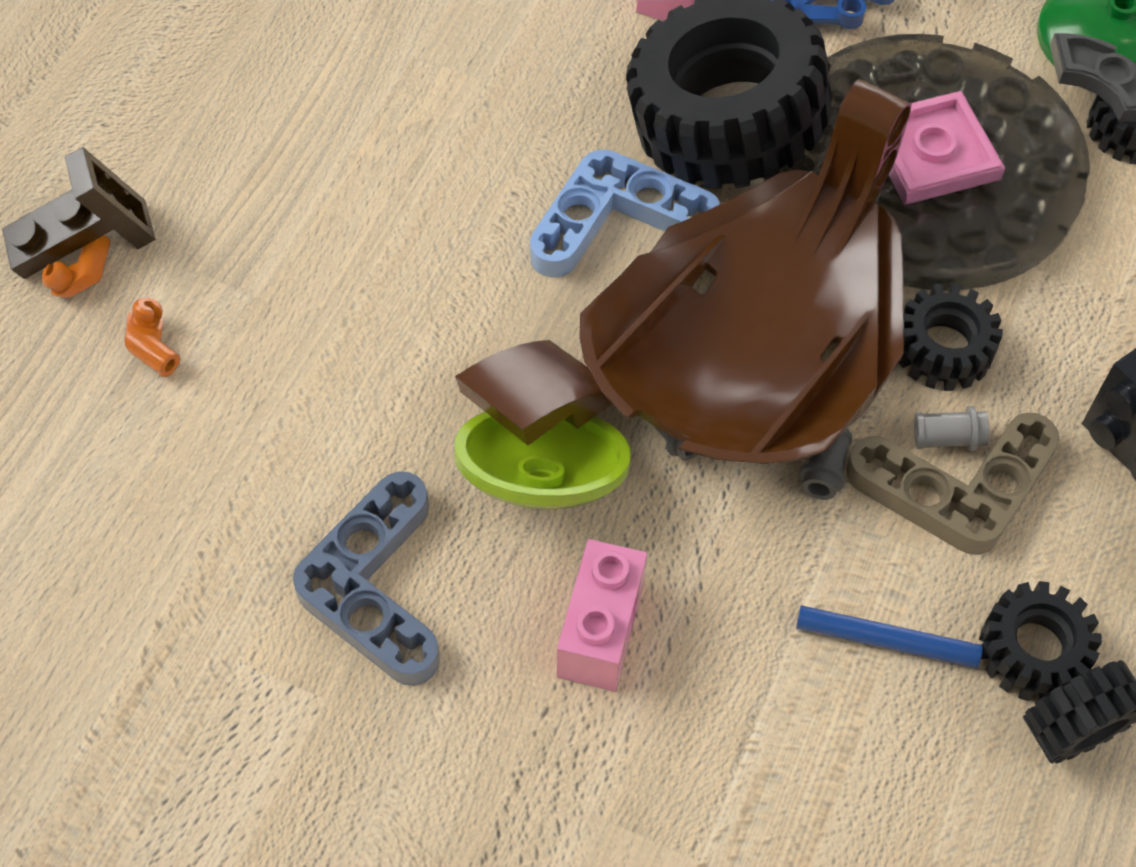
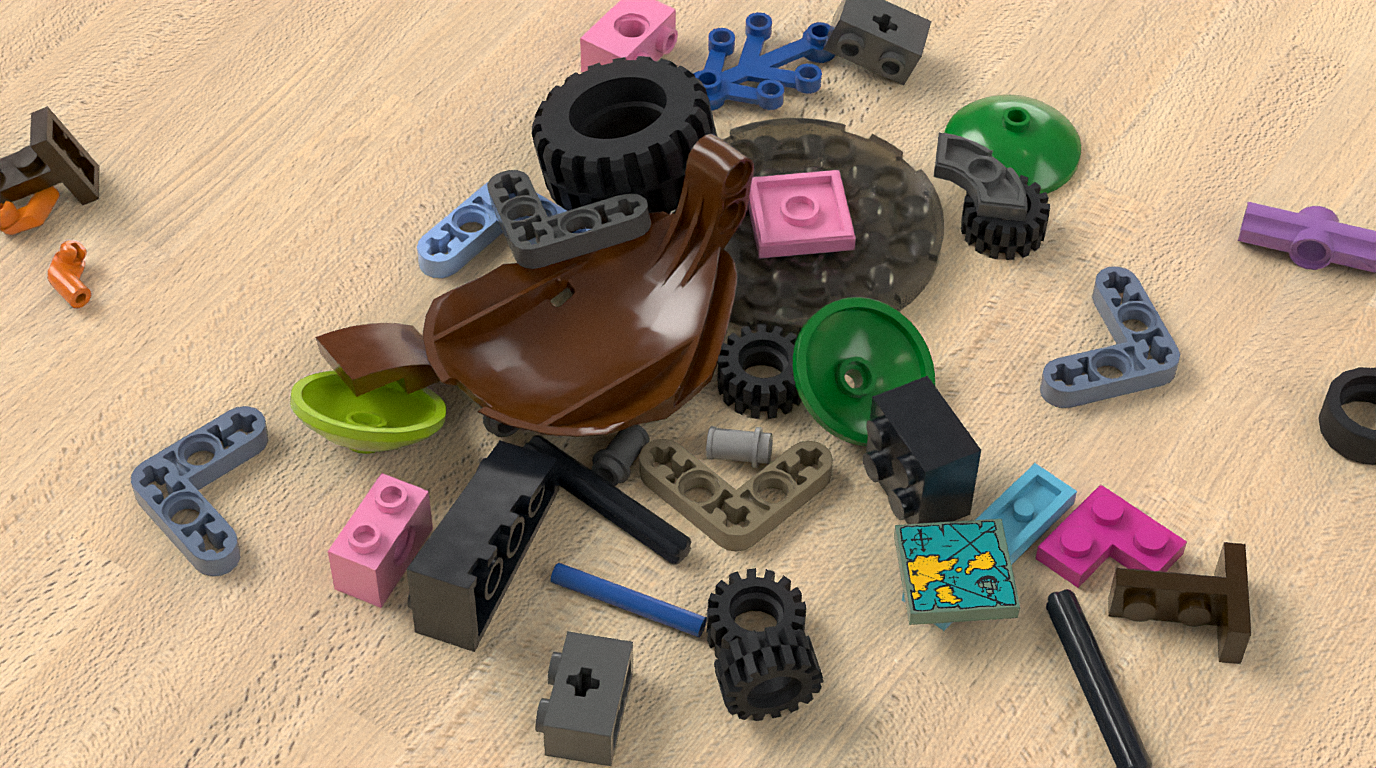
camera: 10 degrees right, 10 degrees down
(720, 596) = (480, 545): none -> black wedge
(749, 187) = (610, 222): none -> dark grey beam
(829, 519) = (615, 504): none -> black axle
(903, 741) = (586, 698): none -> dark grey brick
(1063, 322) = (860, 341): none -> green dish

